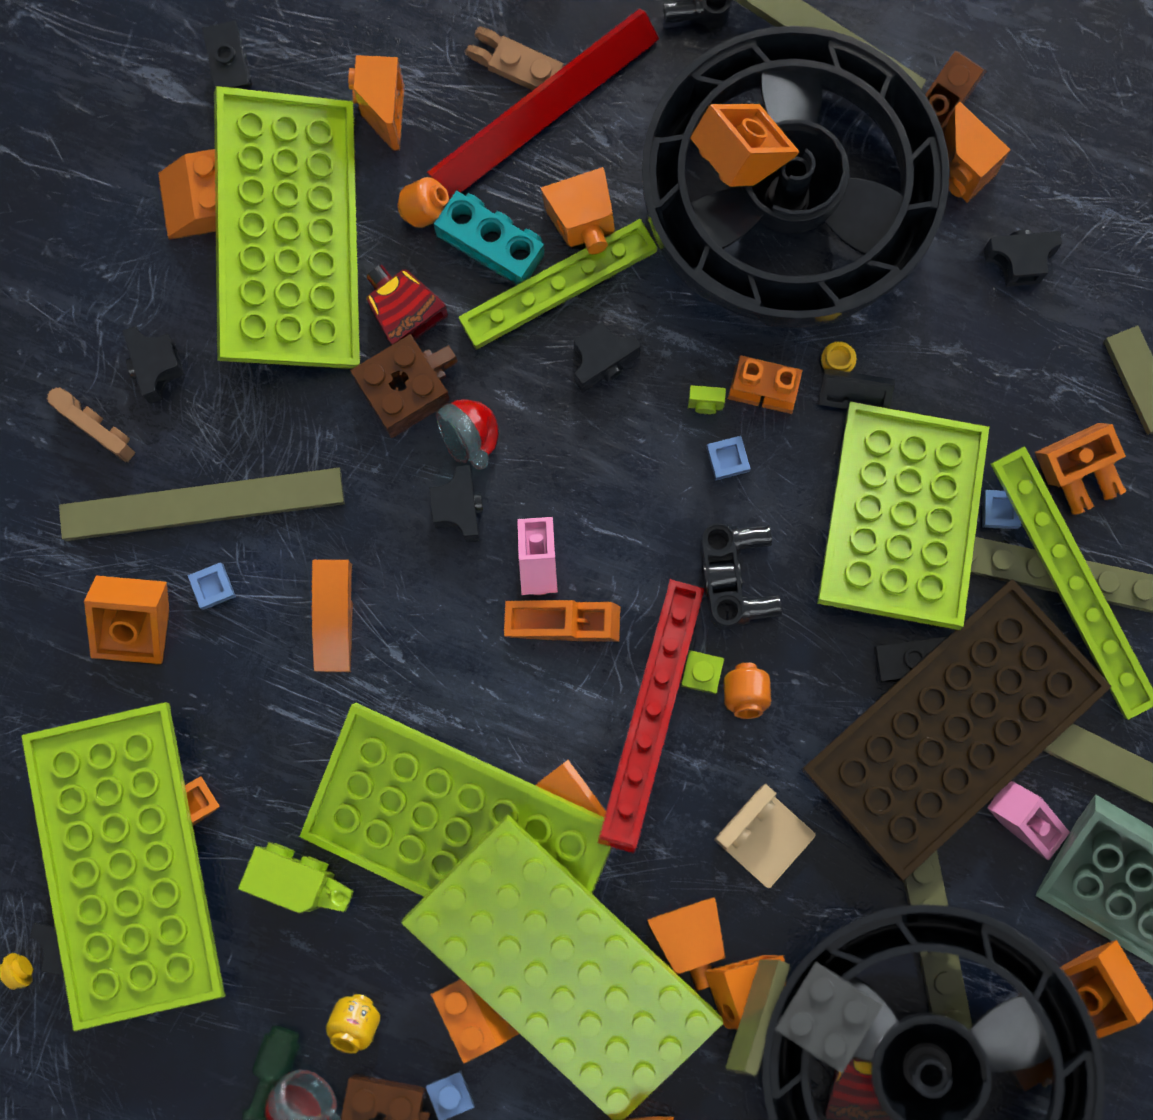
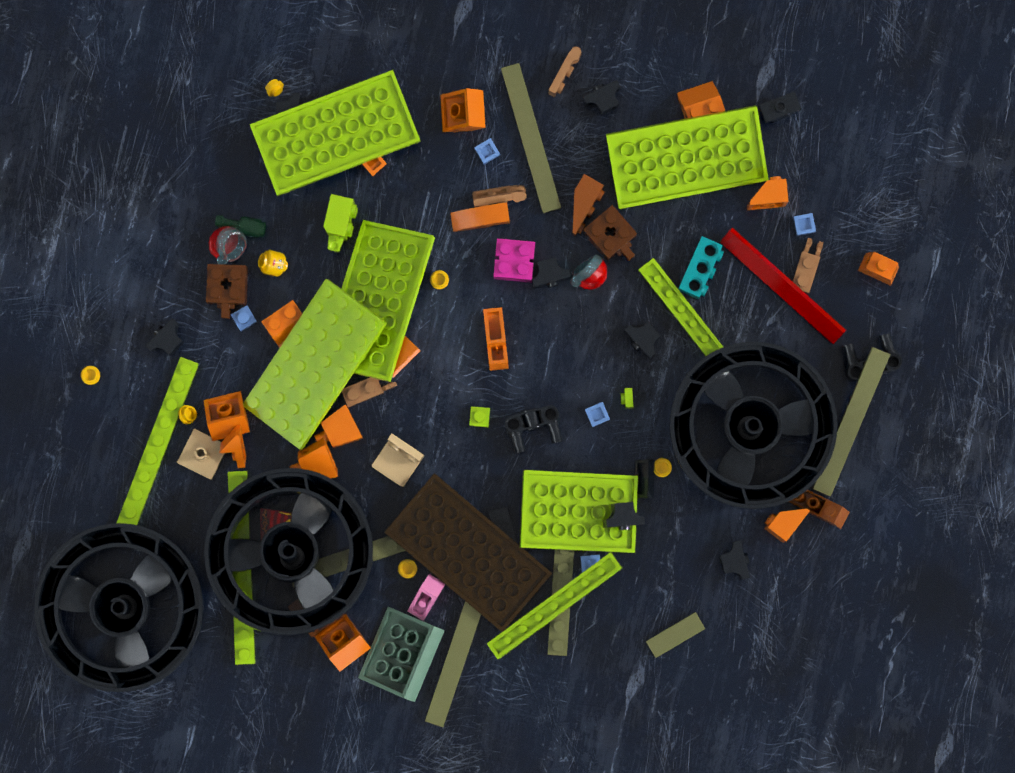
camera: 80 degrees right, 5 degrees up
(297, 575) = (499, 195): none -> medium nougat hinge
(331, 424) = (585, 196): none -> dark orange slope
(403, 304) = (655, 226): torso -> none
(422, 202) = (714, 228): orange head -> none
(422, 564) = (514, 260): none -> dark pink piece
(436, 709) = (439, 279): none -> yellow plate
(441, 53) = (804, 224): none -> medium blue plate
(537, 556) = (528, 320): bright pink slope -> none
(581, 209) = (723, 316): orange torso -> none
(625, 887) = (364, 391): none -> medium nougat hinge
(651, 717) = (451, 391): red tile -> none
(742, 143) = (762, 394): orange slope -> none
(747, 691) = (472, 441): orange head -> none
(752, 1030) = (291, 461): olive tile -> none
(762, 378) = (640, 429): orange hips -> none
(829, 1017) = (309, 497): dark grey plate -> none
(926, 434) = (623, 516): none -> black brick
(969, 848) = (407, 568): none -> yellow plate
(1079, 455) = (625, 602): orange brick -> none

